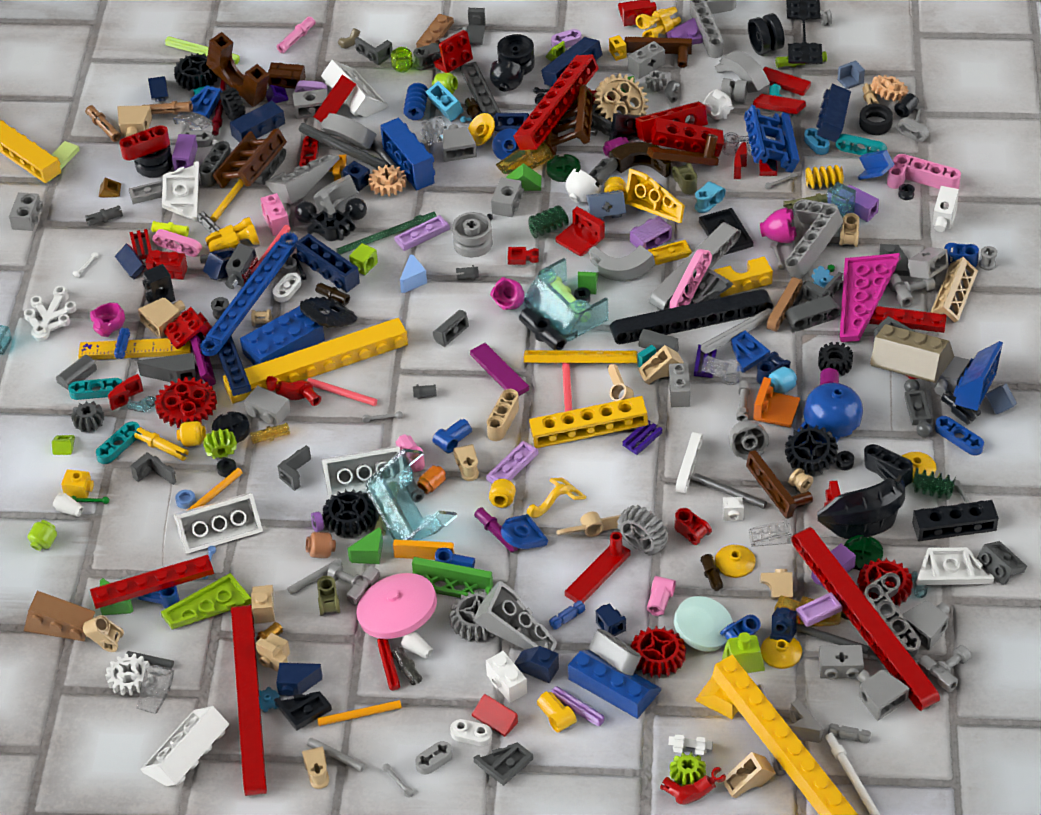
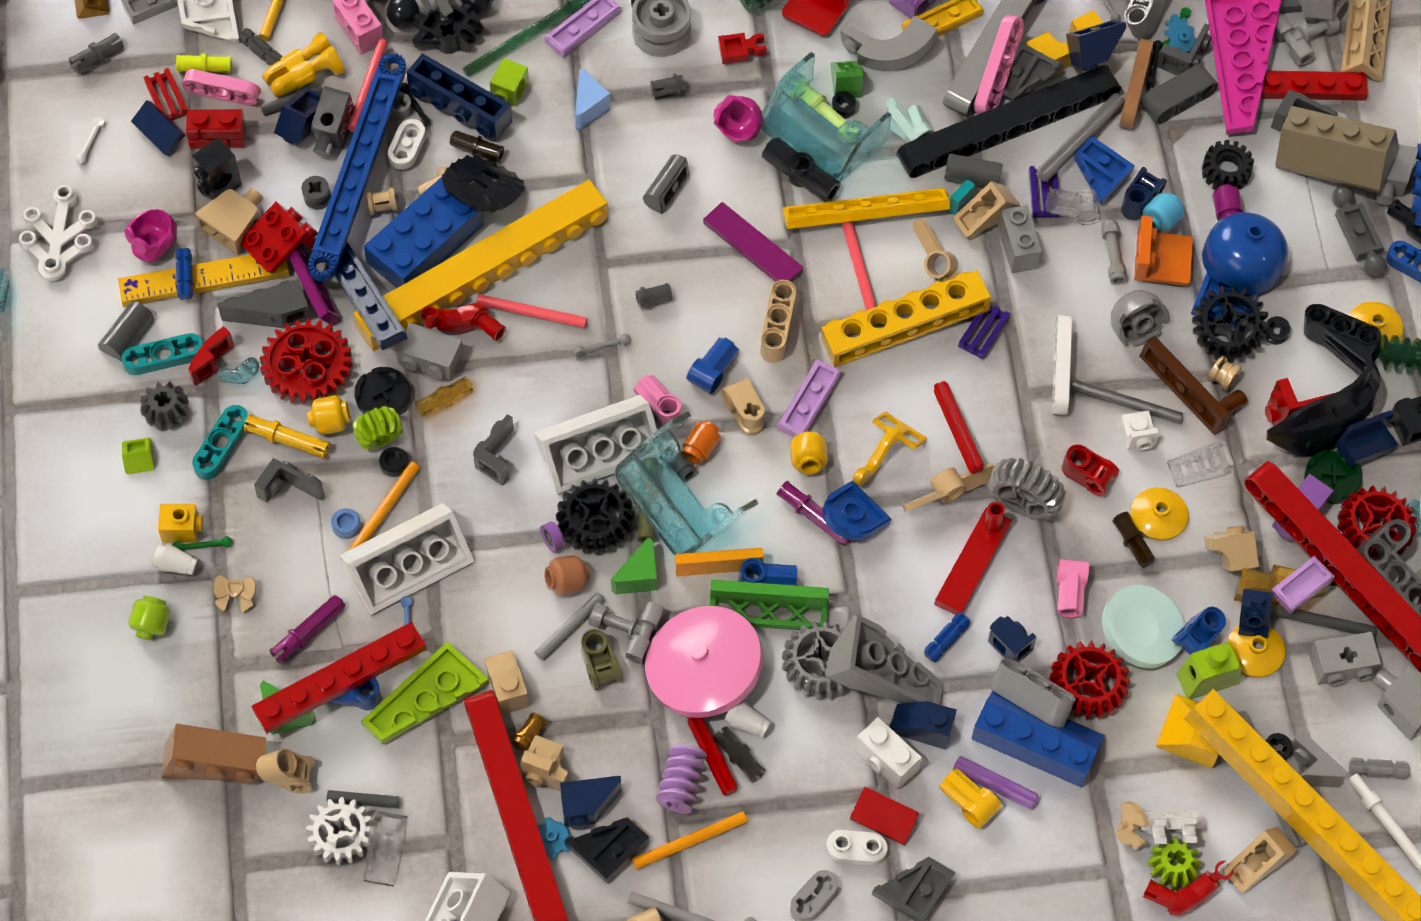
camera: 15 degrees left, 15 degrees up
(96, 526) = (225, 588): none -> tan piece
(142, 555) = (308, 628): none -> magenta axle
(362, 672) = (678, 778): none -> lavender piece
(607, 490) = (958, 427): none -> red axle
(621, 308) = (907, 124): none -> light aqua rock
(663, 735) = (1131, 820): none -> tan piece
(757, 274) = (1094, 44): none -> dark blue slope
(782, 706) = (1278, 738): none -> black bush
(890, 530) = (1367, 440): none -> dark blue panel

